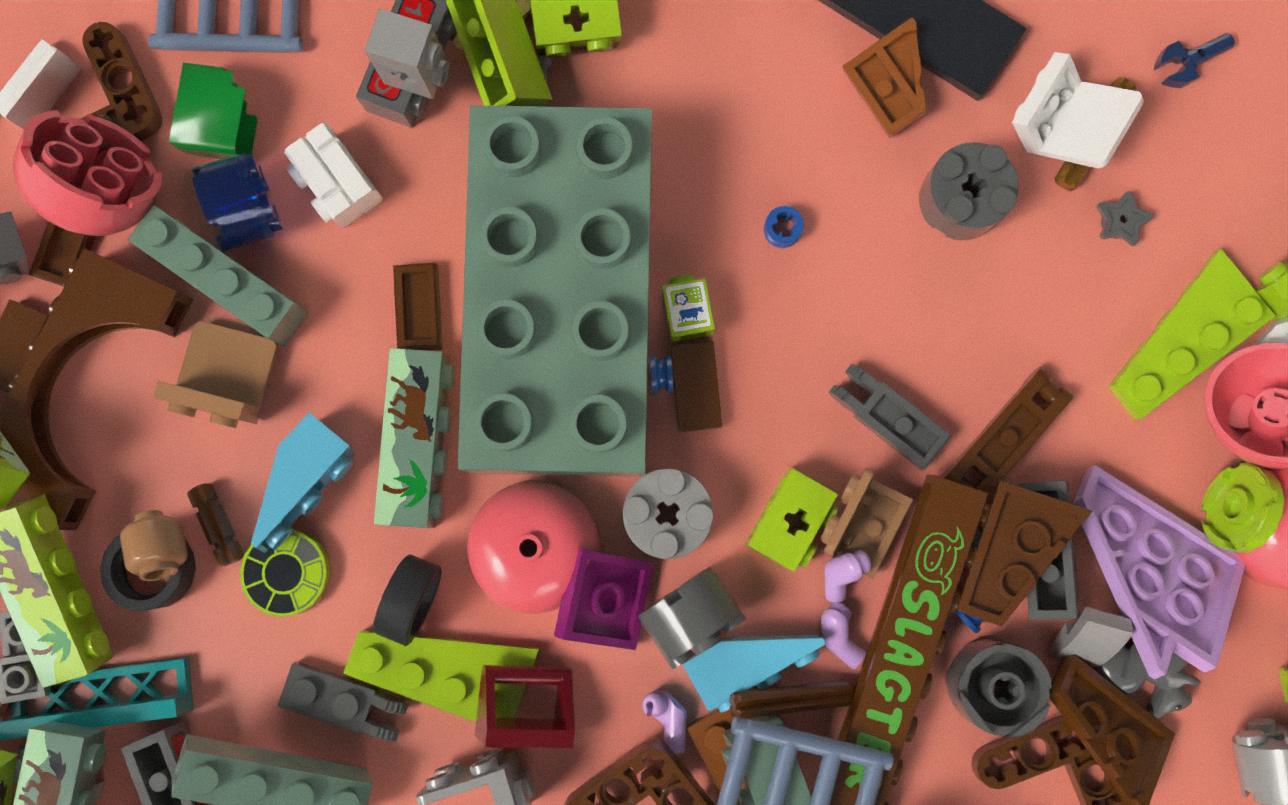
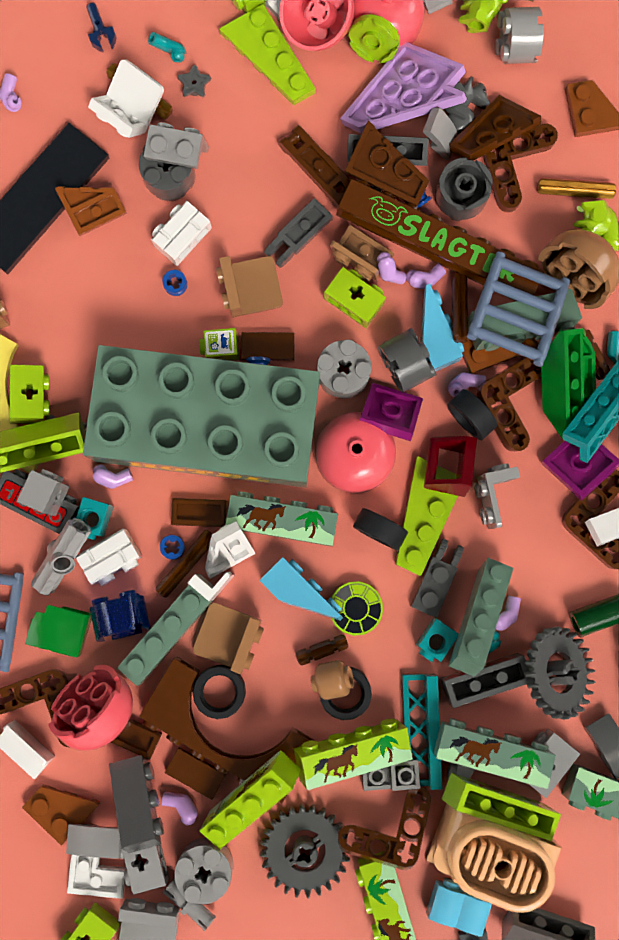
camera: 90 degrees left, 0 degrees up
(109, 353) = (207, 709): none -> black tyre
(259, 709) = (448, 636): none -> teal brick
(290, 330) = (208, 590): none -> white panel
(322, 100) = (61, 556): none -> light grey piece
(334, 295) = (184, 565): none -> reddish brown axle
(346, 273) = (171, 555): none -> blue bush
(358, 357) = (227, 549): none -> white wing
(405, 156) = (103, 511): none -> teal brick
(456, 164) = (109, 479): none -> lavender arm
(611, 737) = (472, 414): none -> black tyre
(791, 345) = (249, 285): none -> medium nougat bracket
(866, 225) = (180, 232): none -> white brick
(1005, 195) = (174, 145): none -> light grey bracket
(1179, 170) = (167, 45): none -> teal arm

